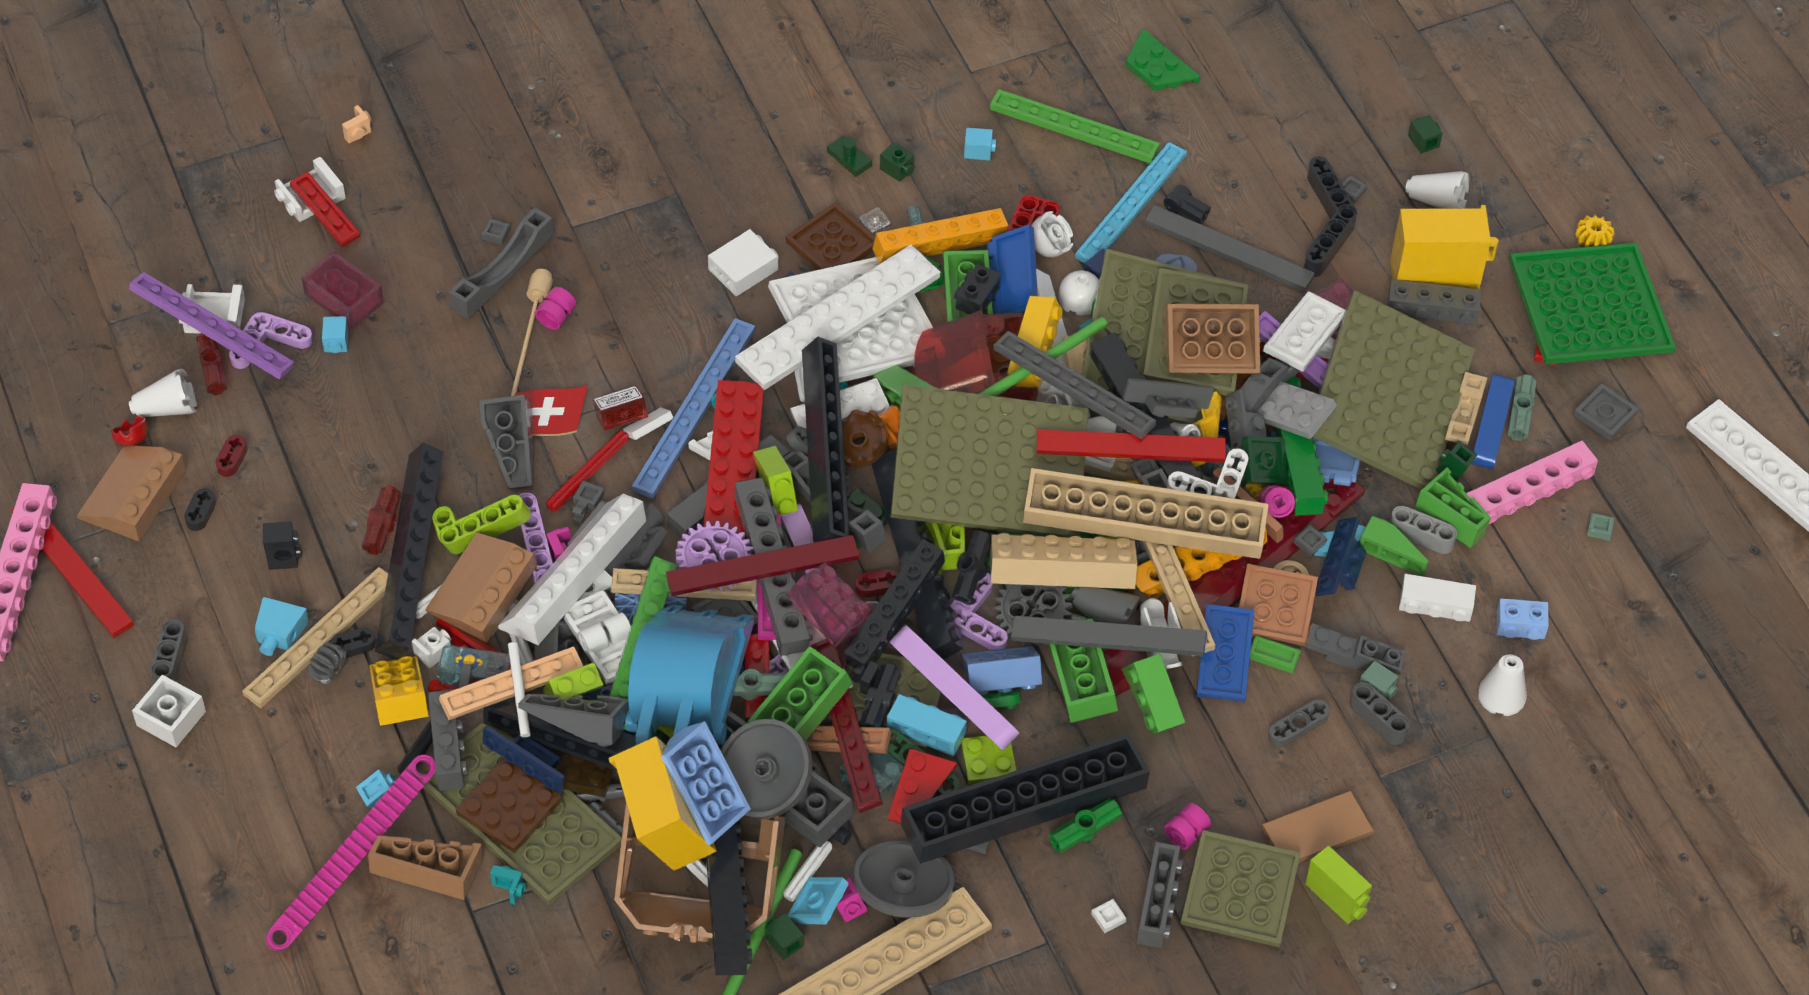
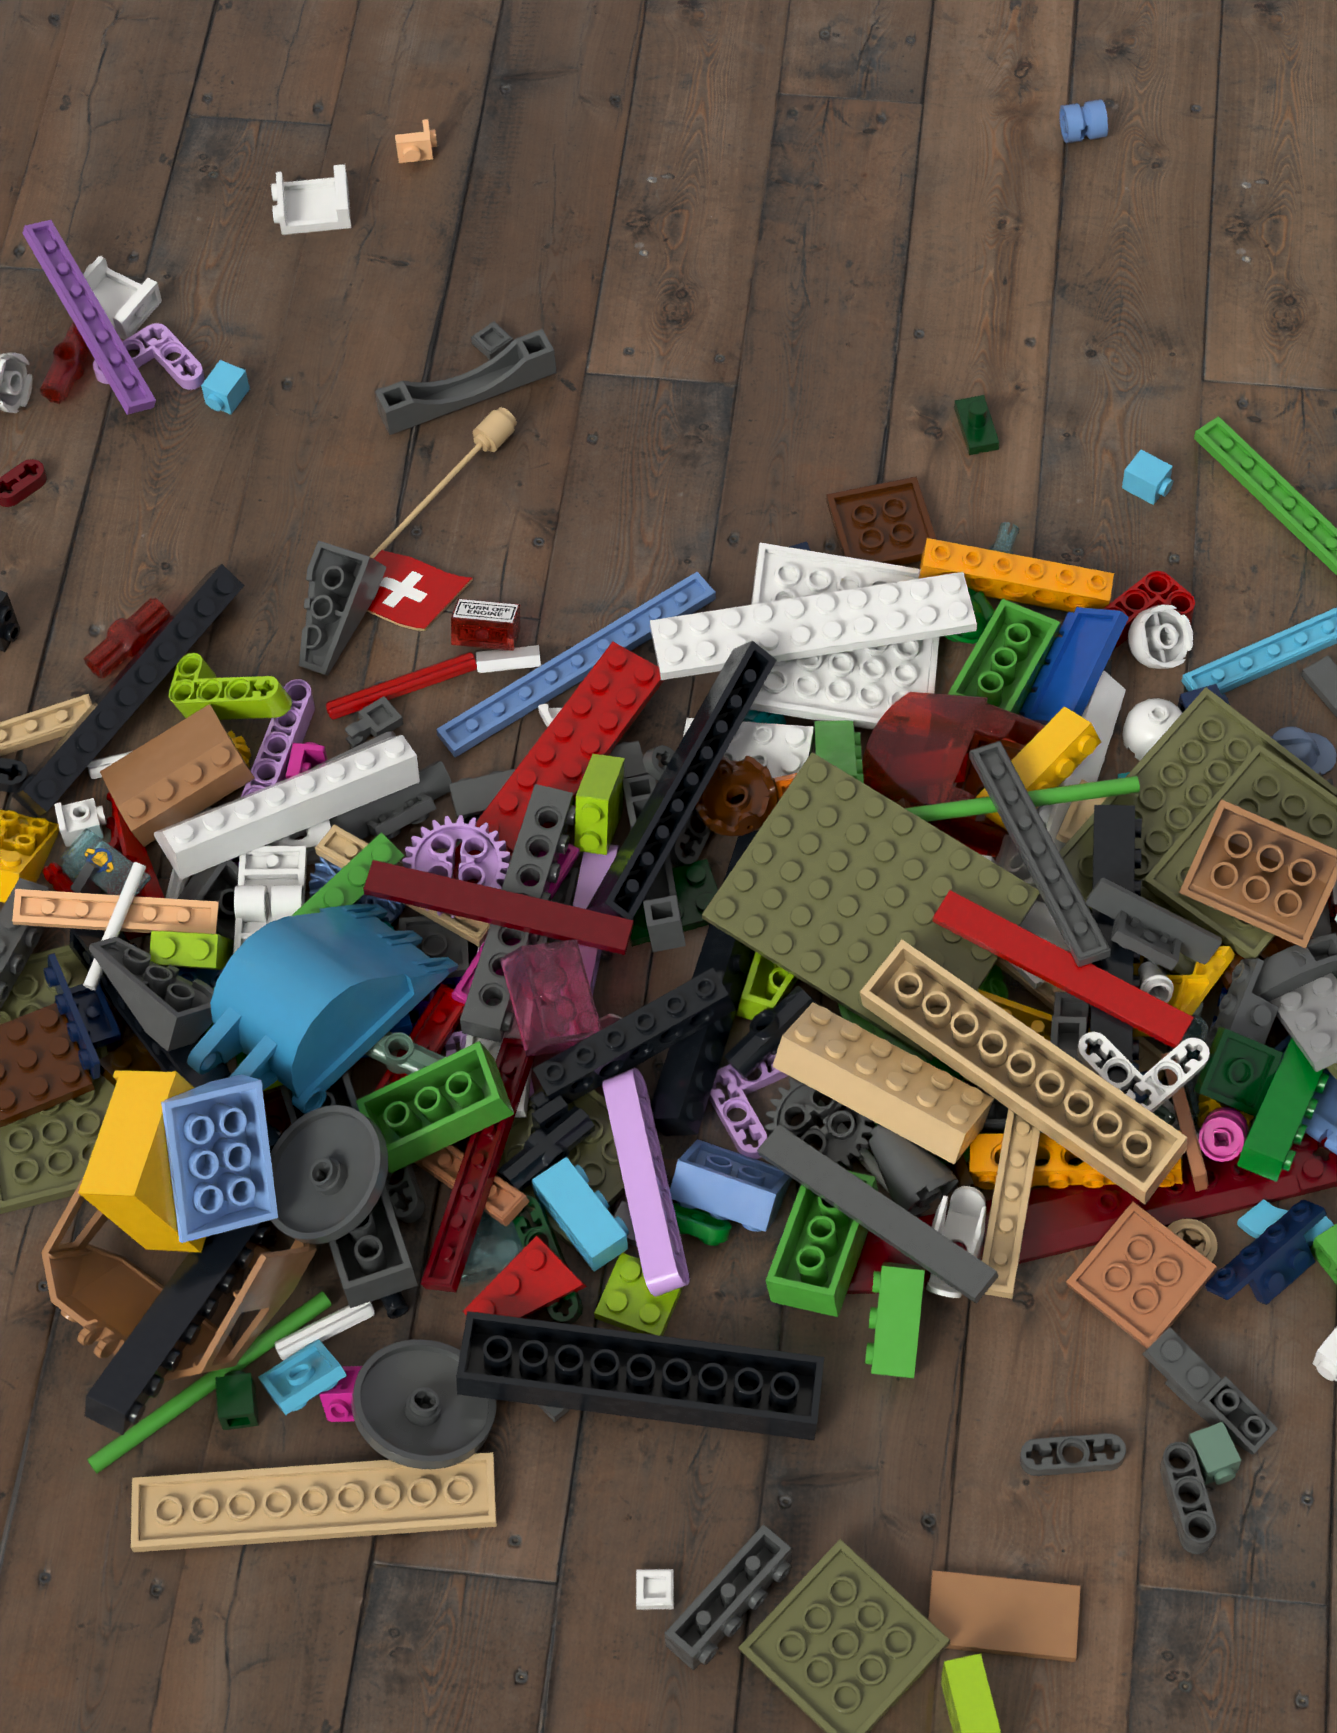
camera: 35 degrees right, 5 degrees up
(325, 209) = (313, 231): red tile -> none
(342, 289) = (265, 336): clear pink brick -> none
(555, 308) = (495, 464): dark pink wheel -> none
(743, 262) = (755, 505): white brick -> none
(875, 221) = (952, 522): clear plate -> none
(876, 582) = (651, 989): dark red beam -> none
(897, 162) = (1028, 457): dark green brick -> none
(978, 290) = (1007, 670): black brick -> none
(1096, 818) = (723, 1448): green piece -> none
(1187, 825) = (828, 1522): dark pink wheel -> none
(1225, 669) = (1019, 1330): blue plate -> none
(1274, 654) = (1101, 1341): bright green tile -> none
(1310, 540) = (1244, 1209): dark grey tile -> none

